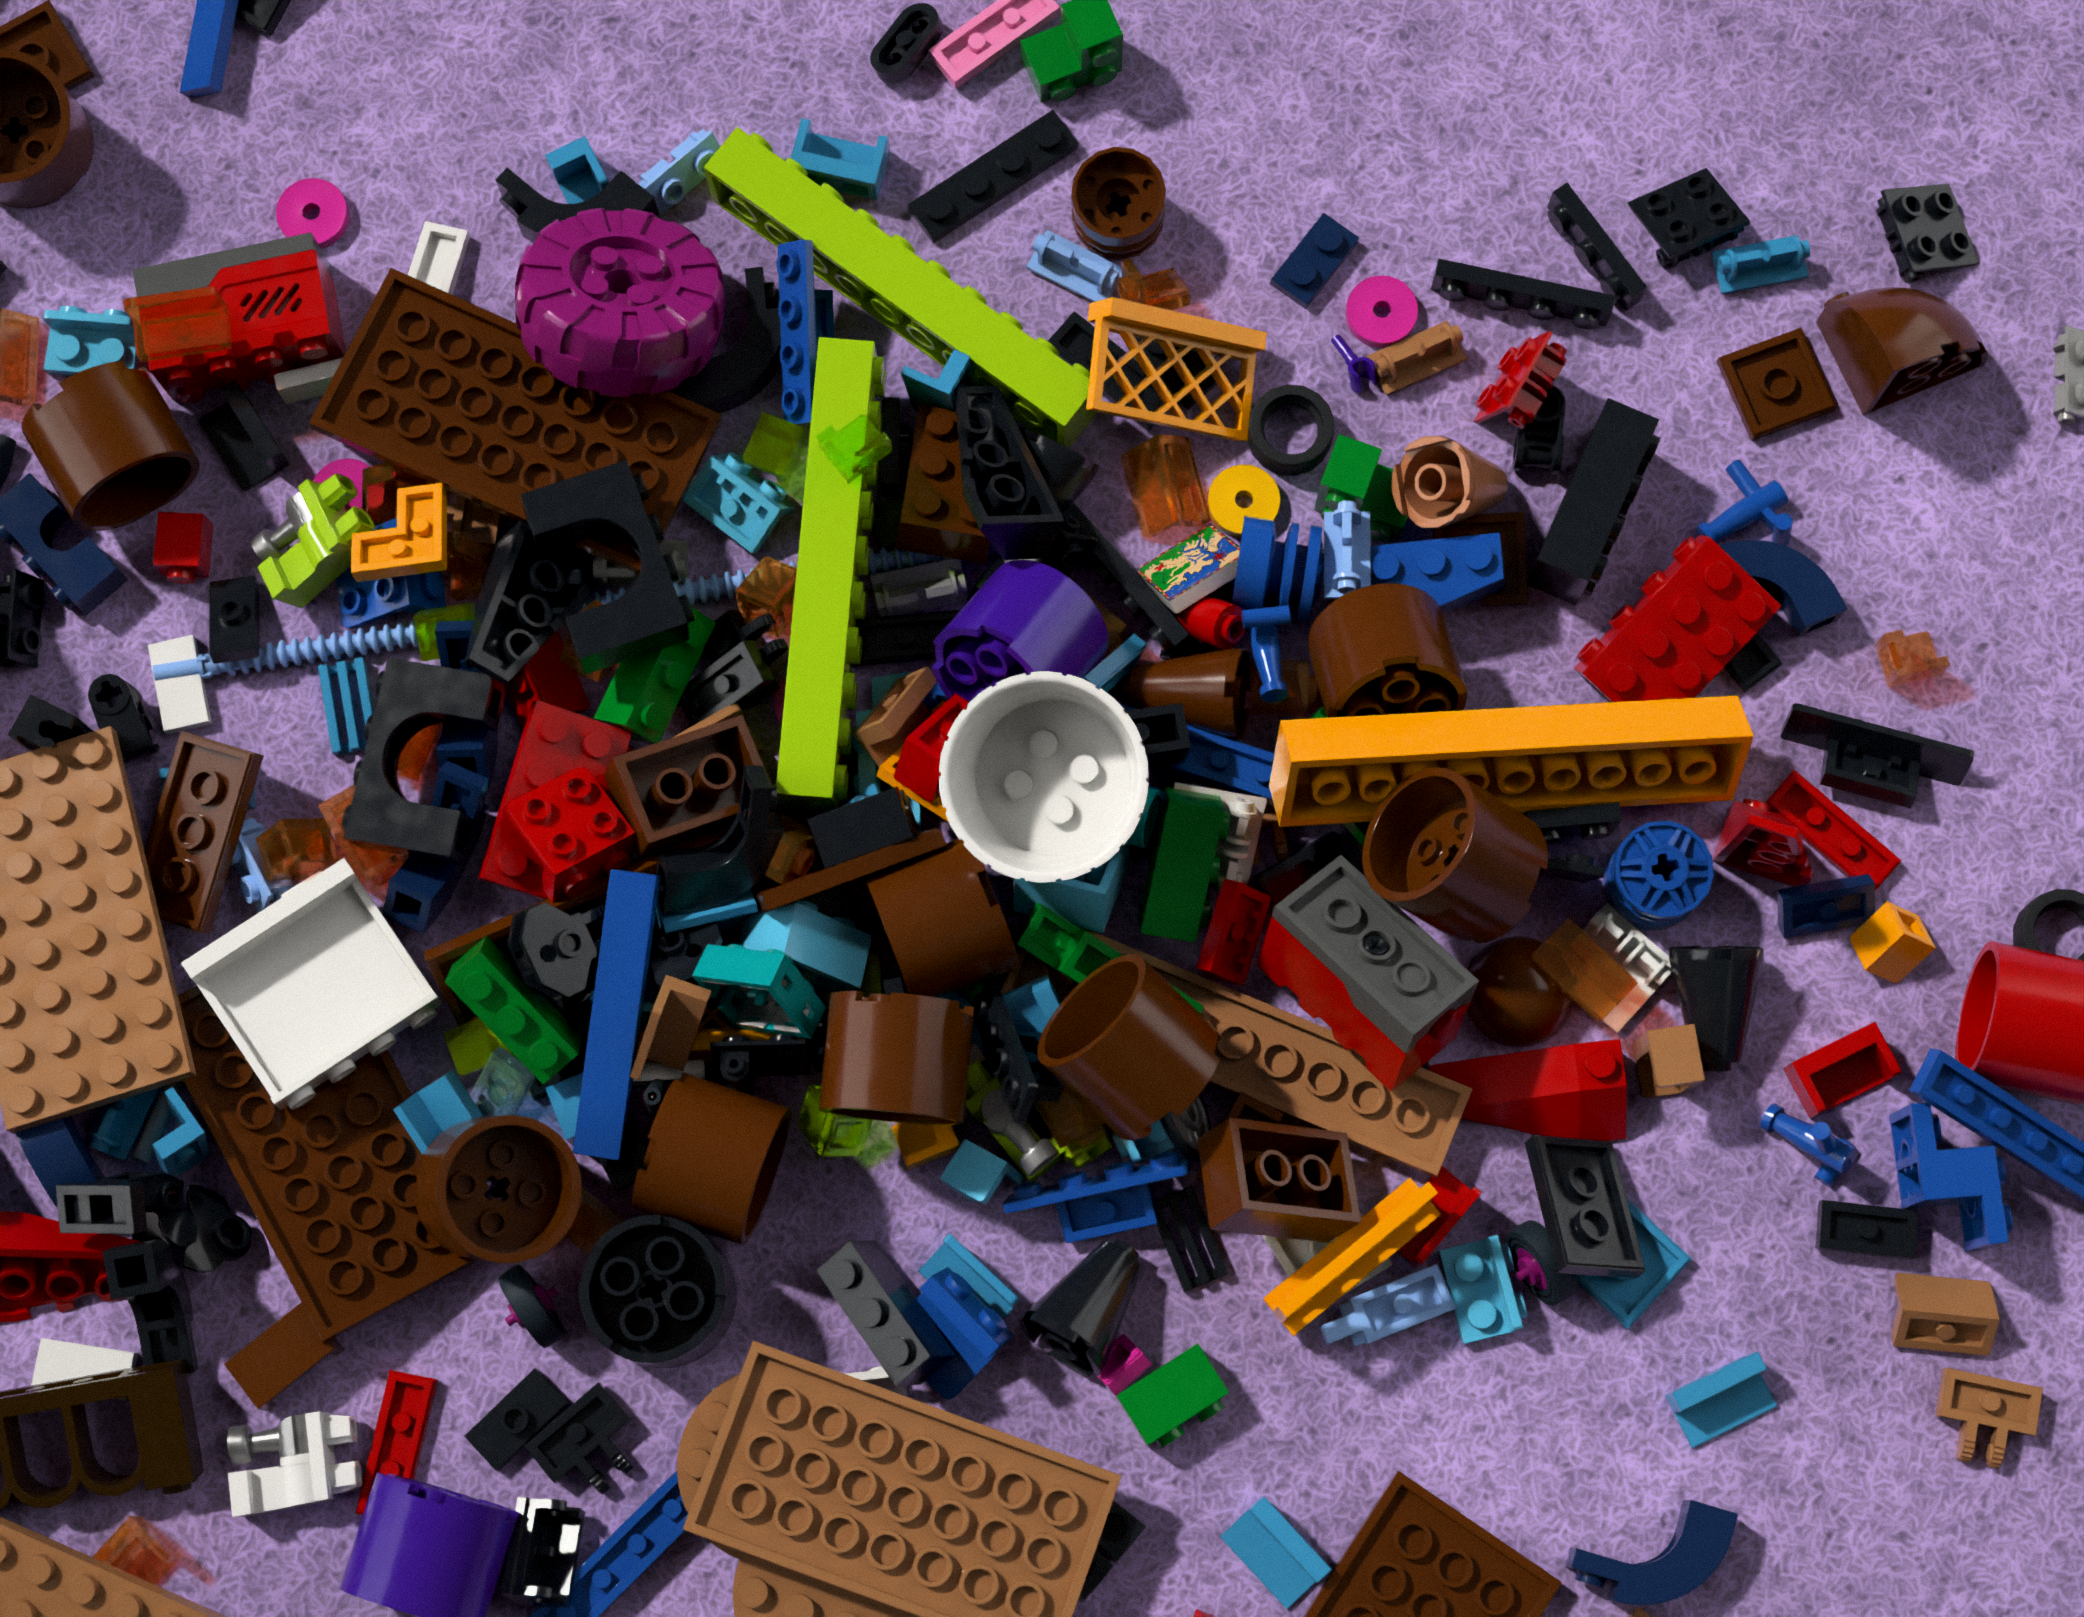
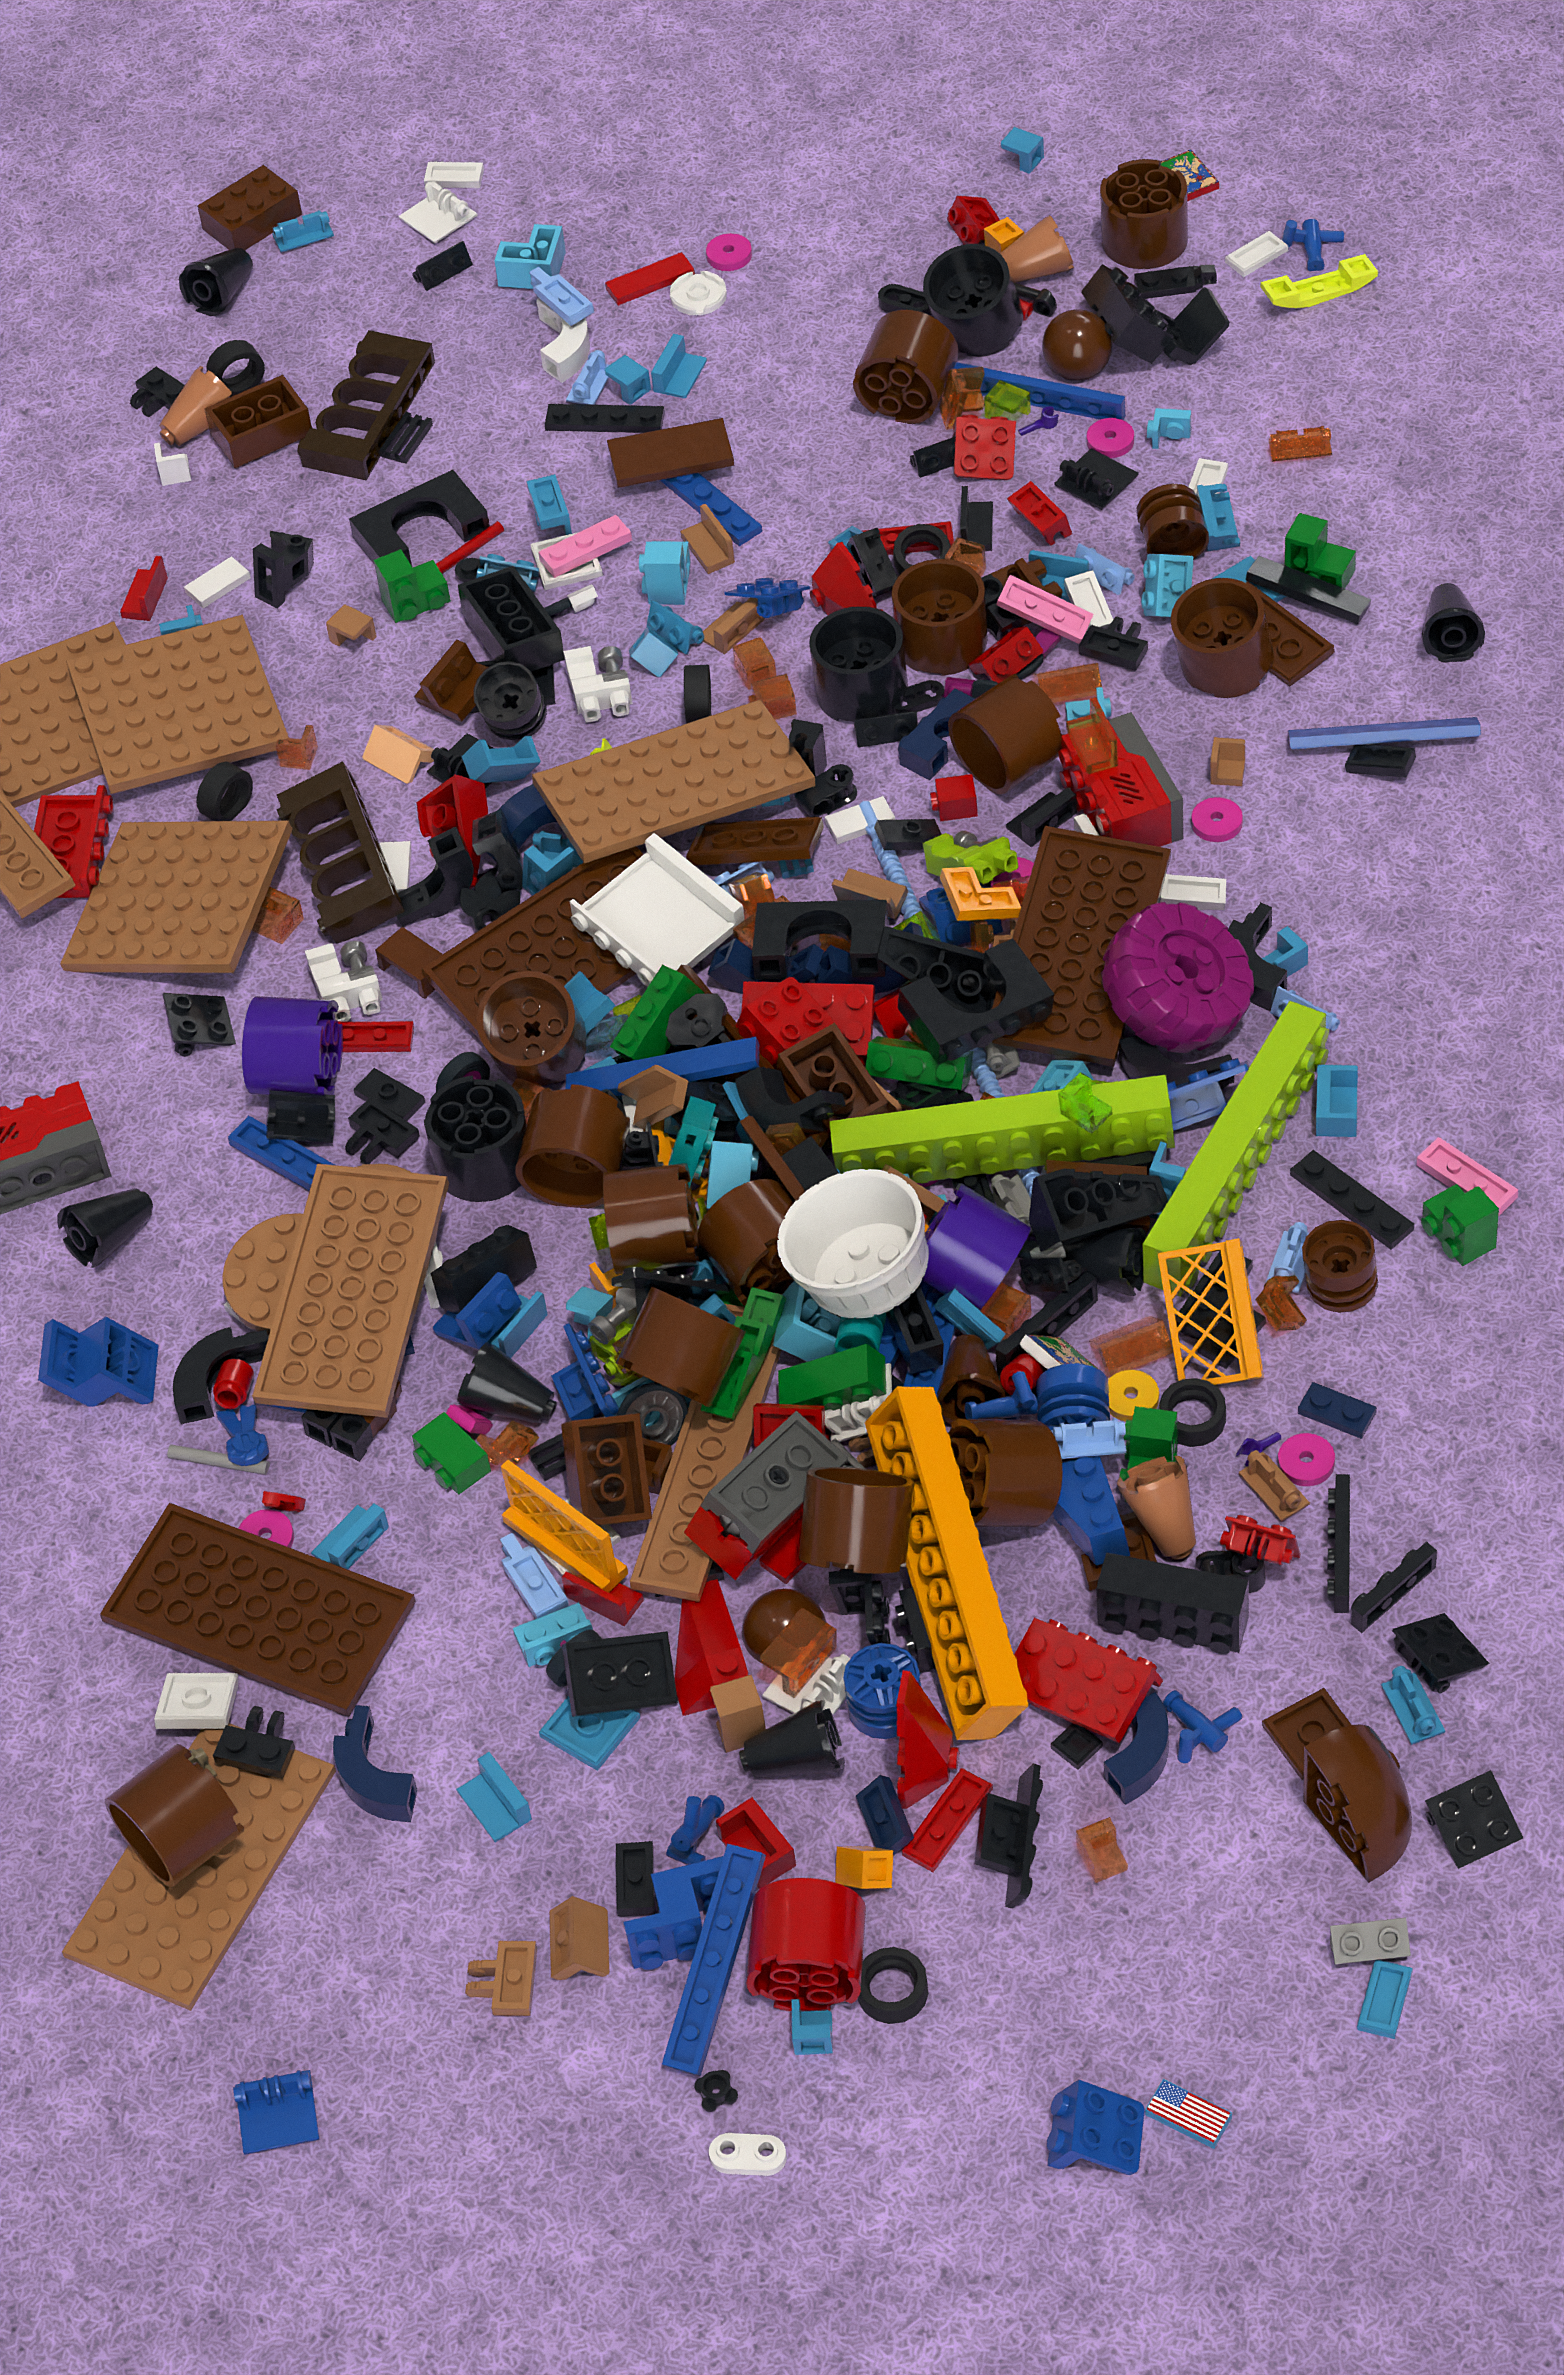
camera: 85 degrees right, 25 degrees down
(222, 178) = (1228, 761): none -> medium nougat panel
(334, 685) = (863, 886): none -> medium nougat panel
(904, 44) = (1436, 1123): black plate -> none
(1183, 1329) = (510, 1445): none -> clear orange bracket

